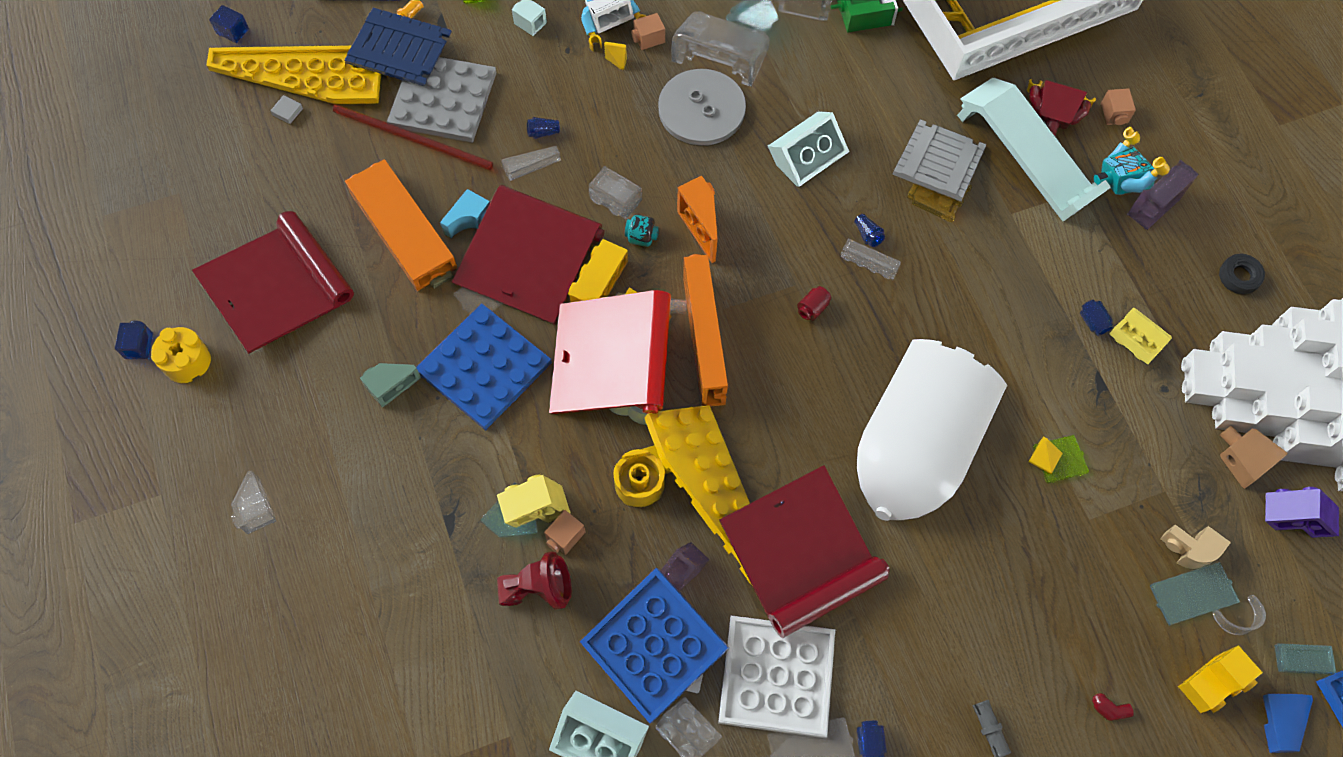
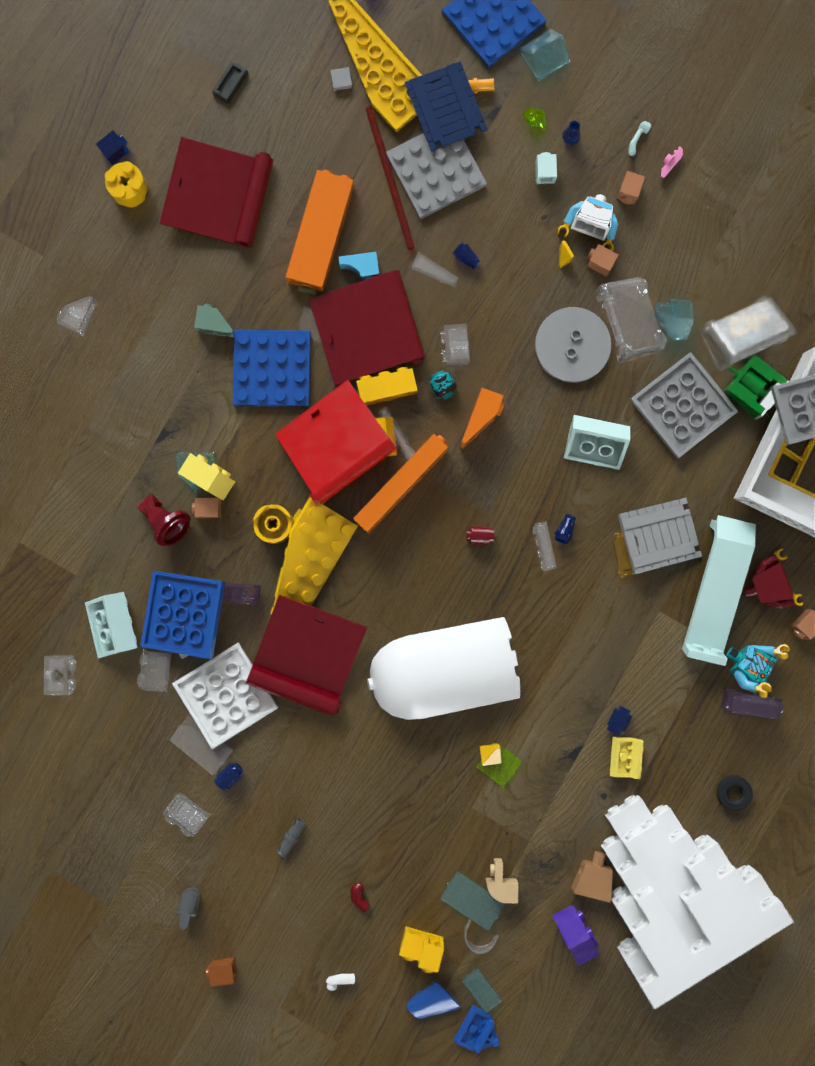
camera: 55 degrees right, 20 degrees up
(189, 198) = (230, 82): none -> pearl dark grey tile
(834, 63) = (683, 405): none -> light grey plate

